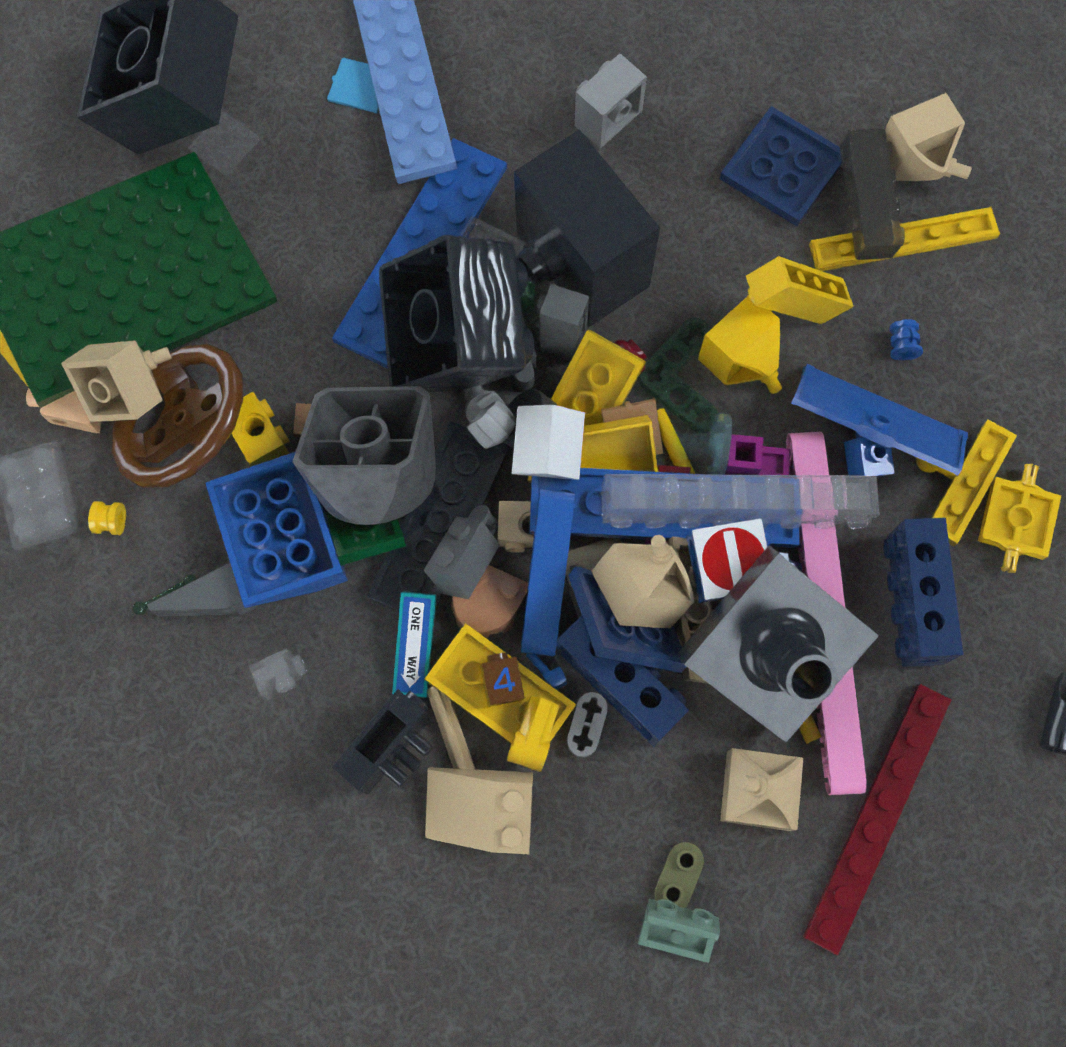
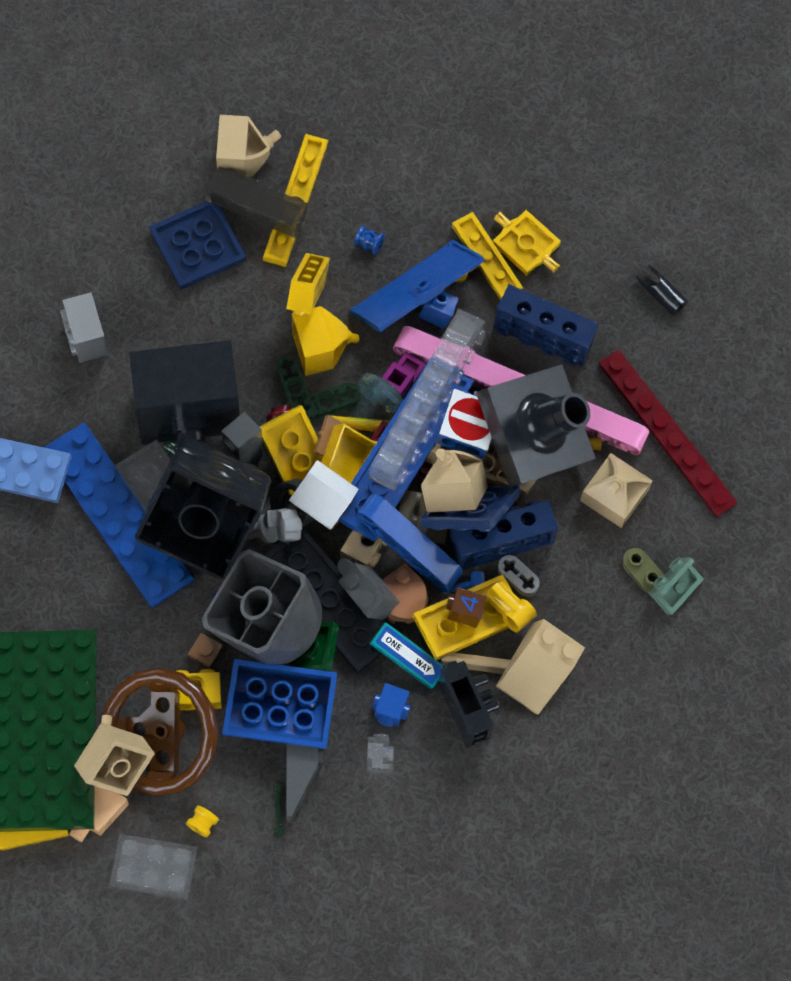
camera: 70 degrees left, 5 degrees down
(344, 656) = (391, 705): none -> blue brick

